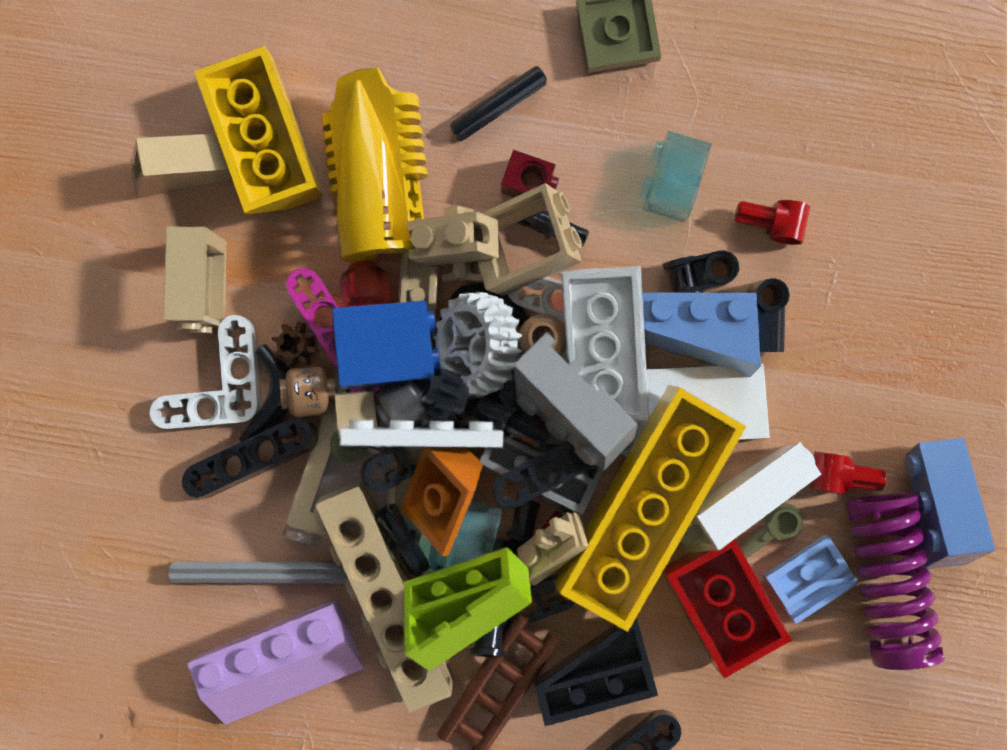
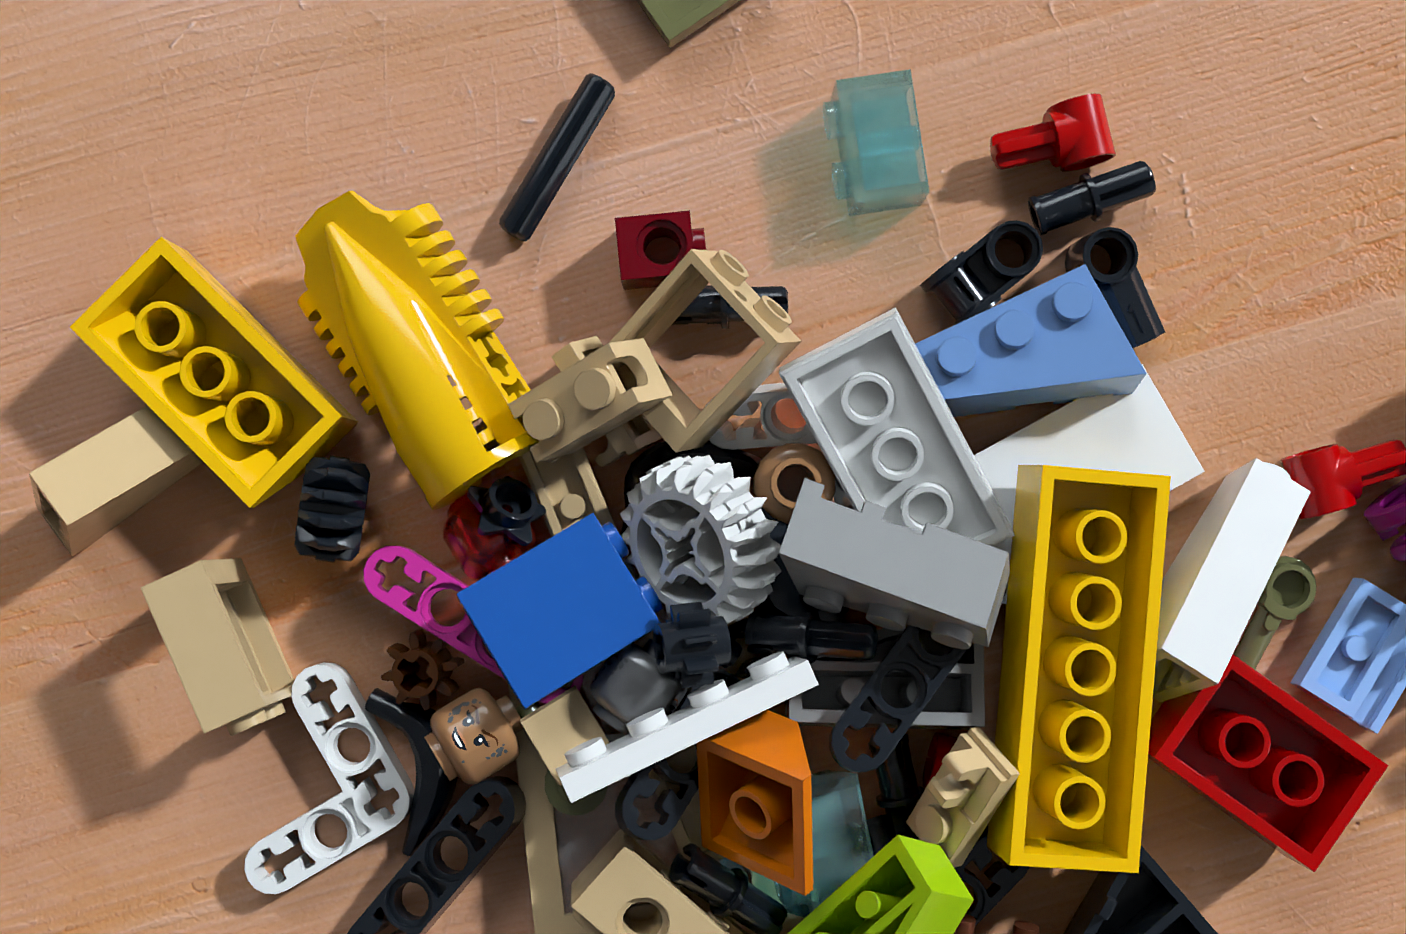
camera: 30 degrees left, 0 degrees up
(287, 235) = (332, 509): none -> black gear
(377, 271) = (510, 495): none -> black plate
(779, 260) = (1091, 197): none -> black axle

